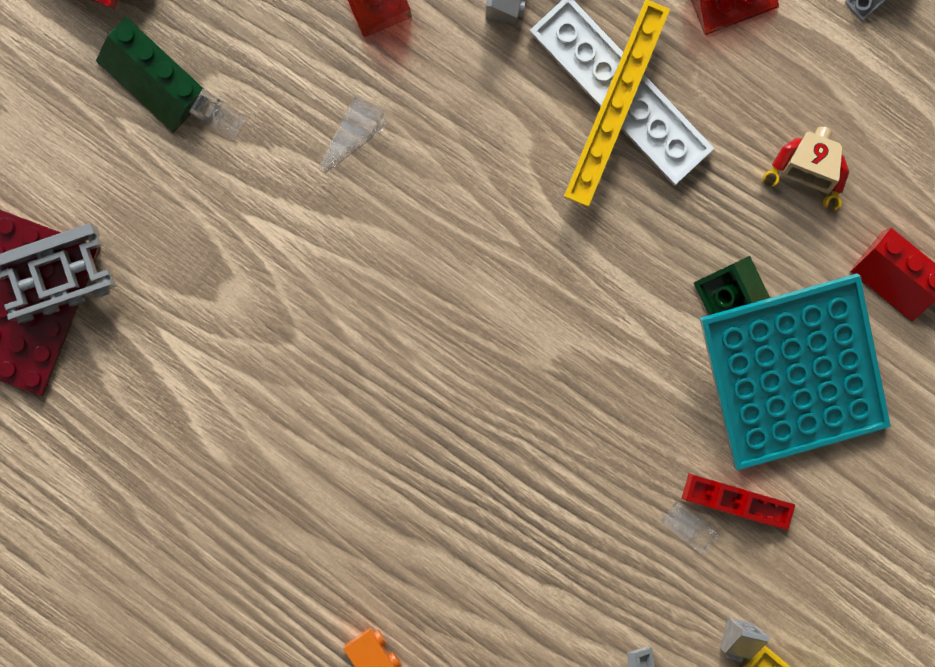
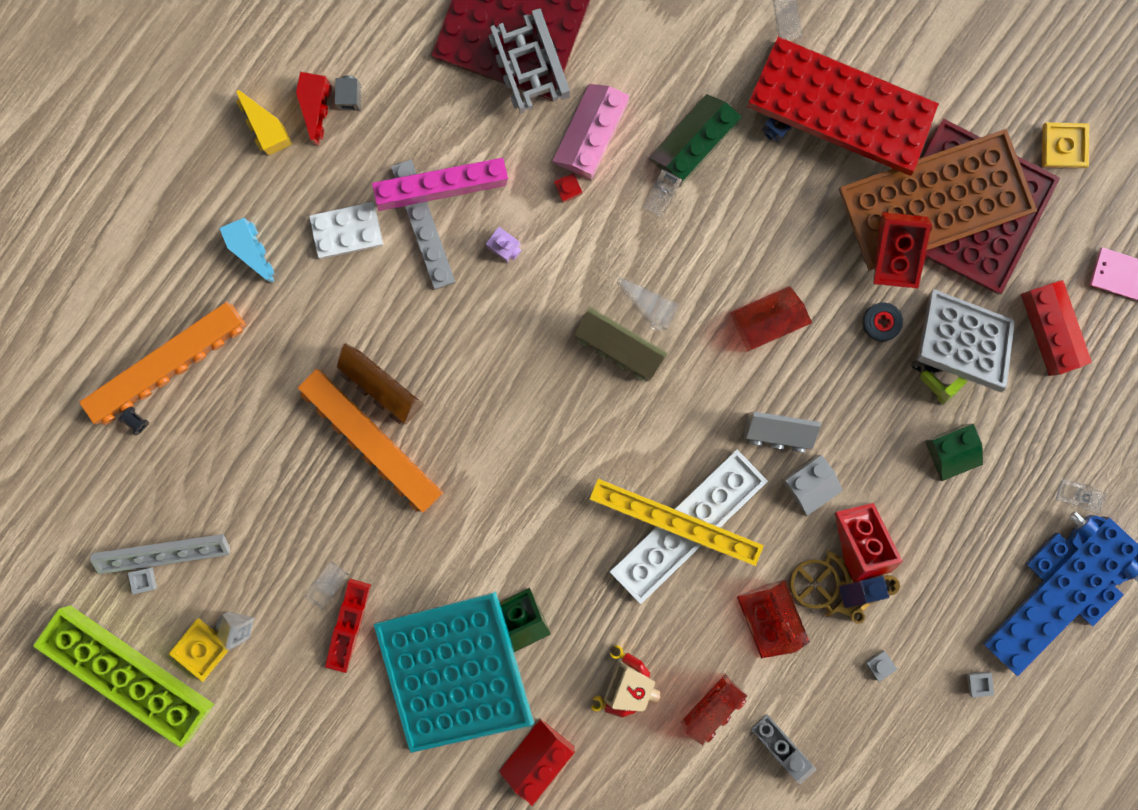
camera: 95 degrees right, 0 degrees up
(86, 499) = (348, 93): none -> dark grey brick
(87, 543) = (312, 96): none -> red slope
(126, 598) = (269, 130): none -> yellow slope
(137, 201) = (591, 130): none -> bright pink slope
(202, 384) = (440, 184): none -> dark pink brick
(208, 230) = (568, 187): none -> red plate
(250, 407) = (426, 234): none -> light grey plate
(256, 502) = (346, 230): none -> white plate
(268, 630) = (242, 242): none -> medium azure slope
(278, 308) = (504, 245): none -> lavender brick
(403, 166) = (619, 344): none -> olive slope
(447, 461) = (378, 384): none -> reddish brown slope
(514, 473) = (370, 440): none -> orange brick
(840, 63) = (714, 710): none -> clear red slope

